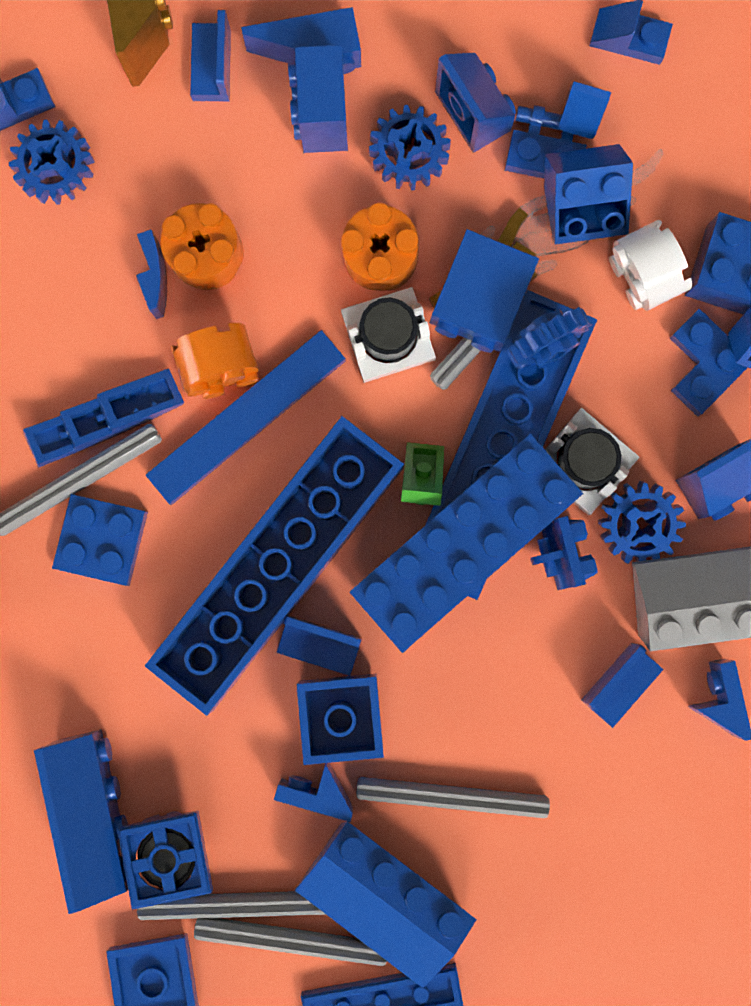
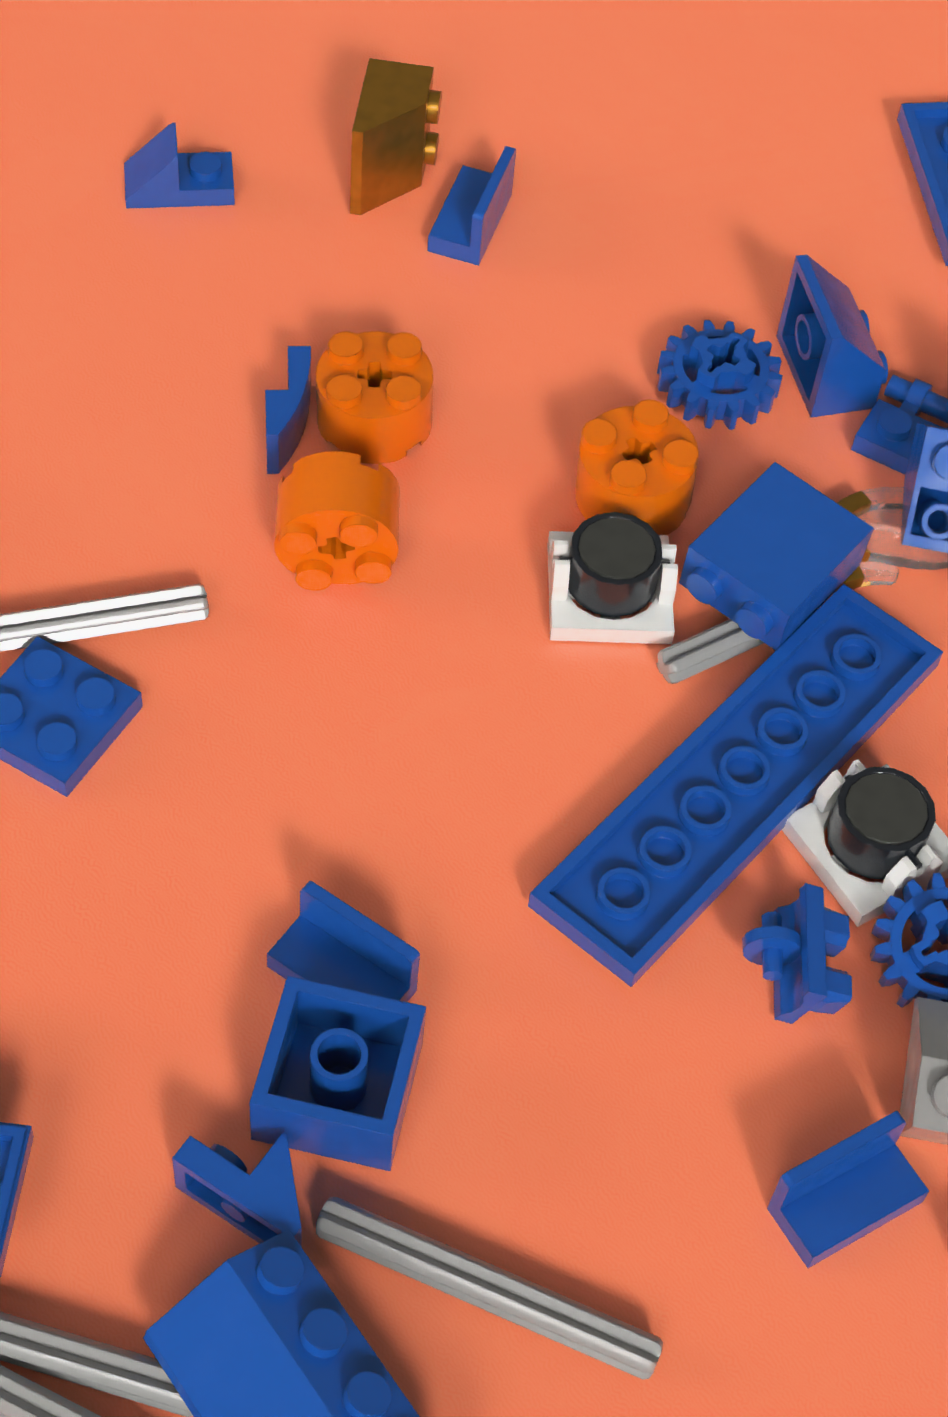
camera: 10 degrees right, 30 degrees down
(48, 178) = (203, 249): blue gear -> none
(103, 417) = (132, 559): blue slope -> none
(245, 417) = (347, 626): blue tile -> none
(274, 566) = (318, 811): blue brick -> none
(280, 37) = (618, 225): blue slope -> none
(318, 98) = (609, 276): blue brick -> none
(423, 474) = (596, 779): bright green slope -> none
(466, 543) = (637, 867): blue brick -> none
(549, 338) = (861, 621): blue gear -> none

